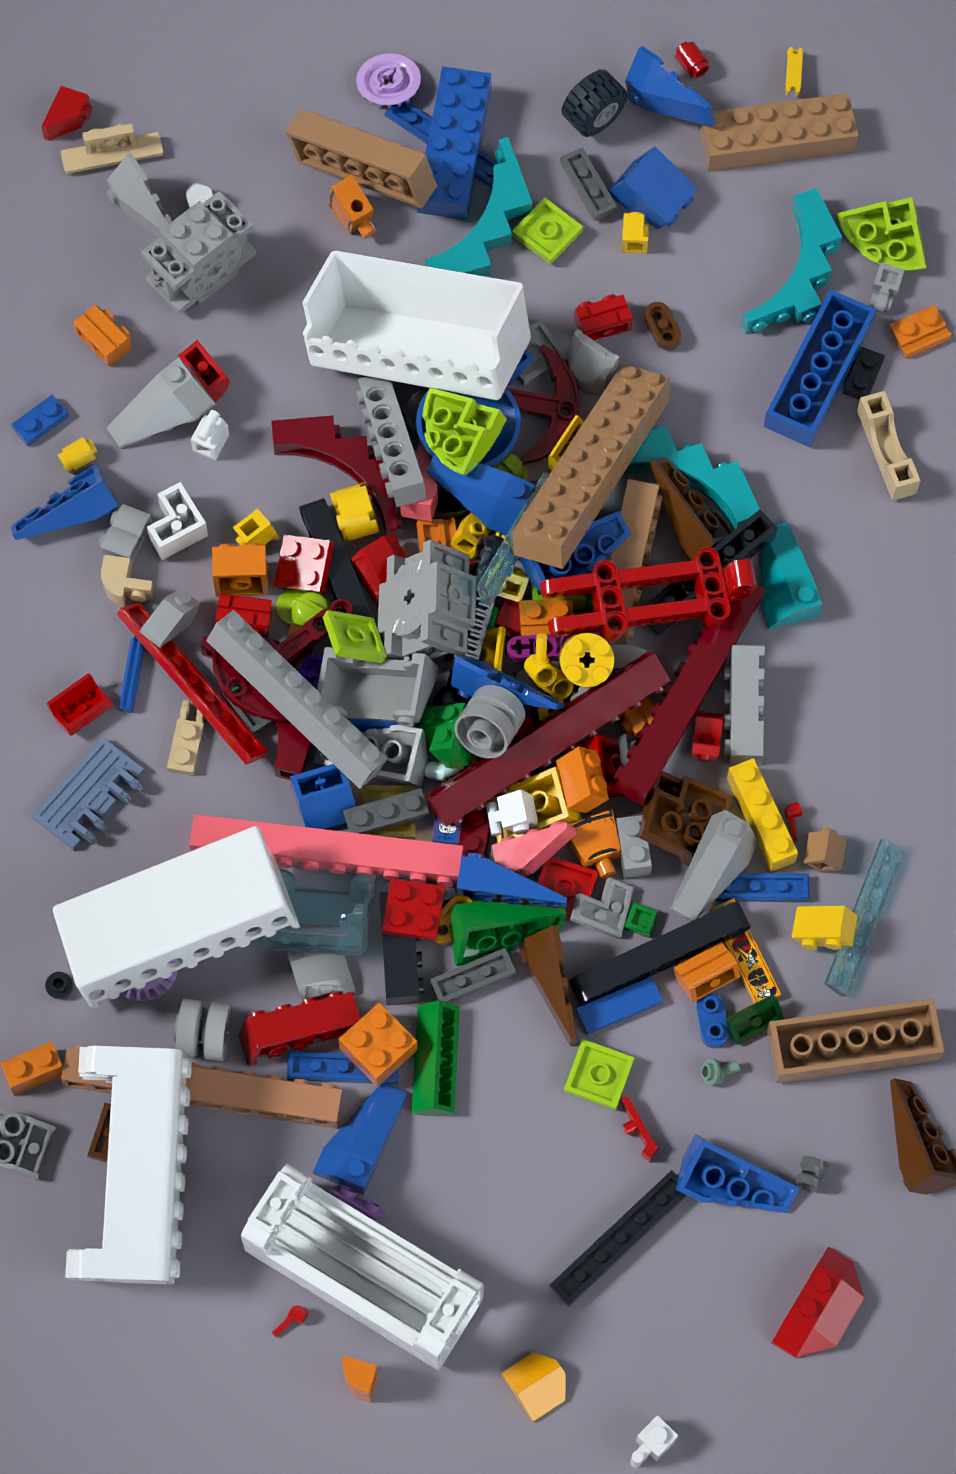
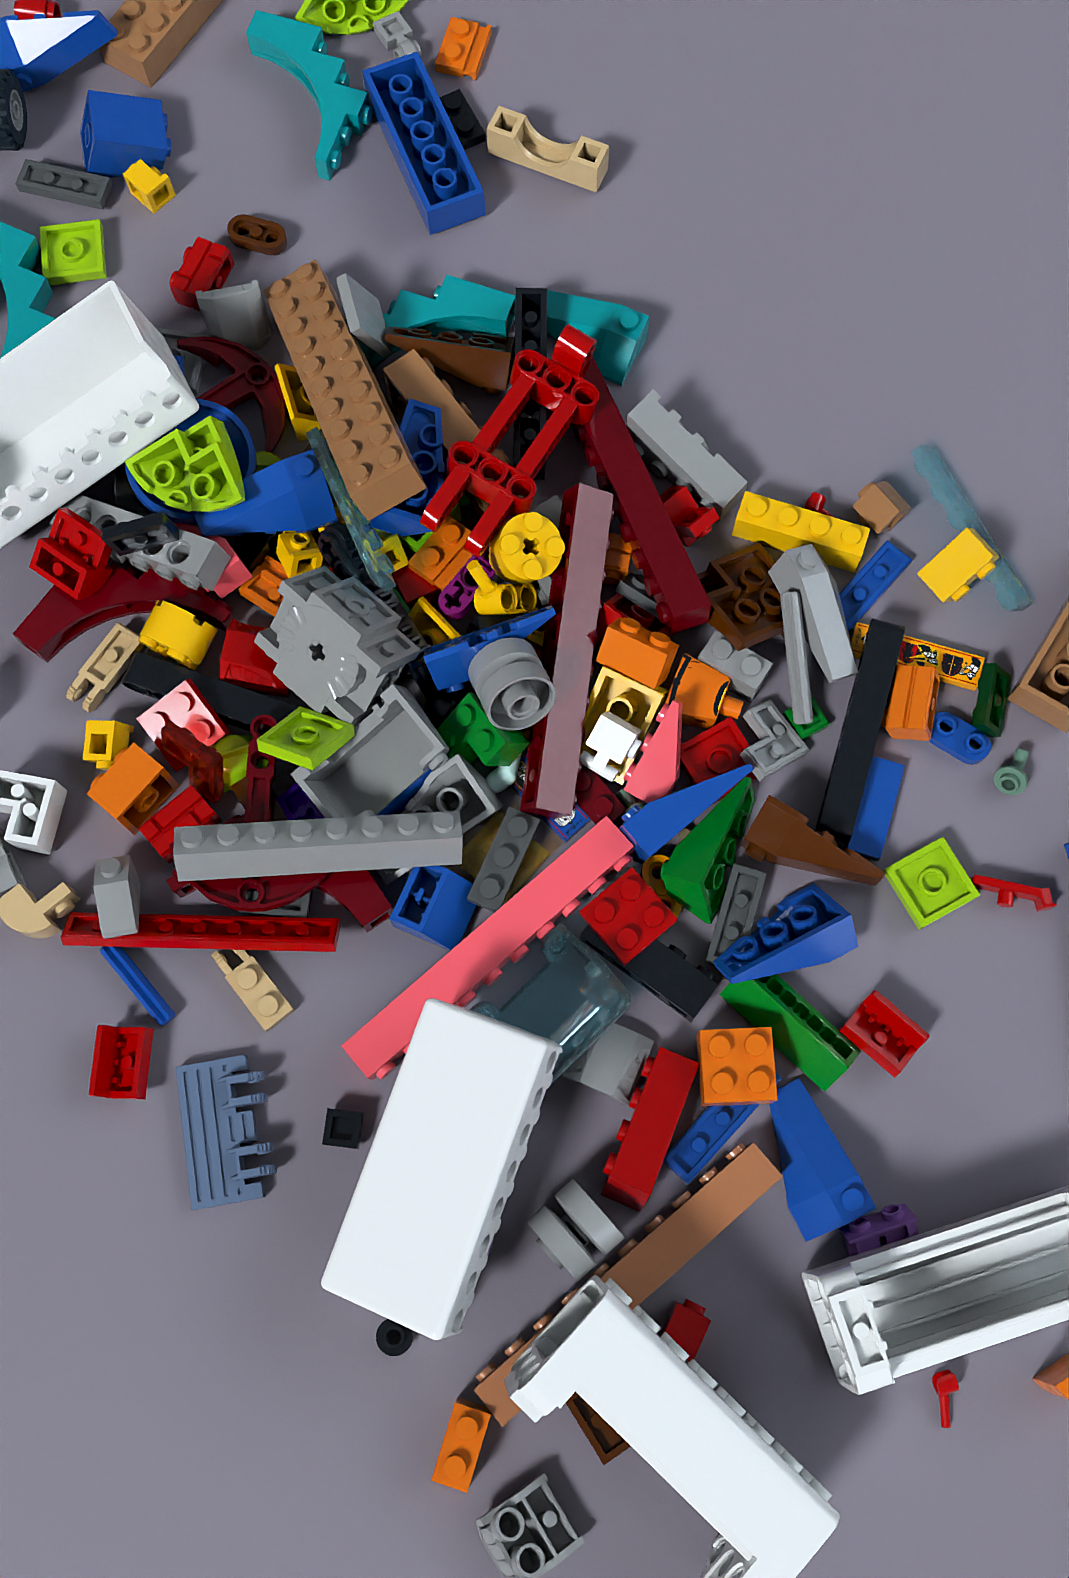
camera: 45 degrees left, 5 degrees up
(148, 856) = (343, 1128): none -> black plate
(202, 1140) = (687, 1326): none -> red brick
(290, 593) = (203, 761): none -> clear red plate
(300, 489) = (105, 666): none -> tan hinge
(347, 412) = (73, 556): none -> red brick
(390, 437) = (140, 534): none -> black plate
(476, 1117) = (884, 1033): none -> red bracket
(494, 1022) = (801, 934): none -> blue wedge
(654, 437) = (363, 315): none -> light grey tile
(667, 876) = (796, 658): none -> light grey axle

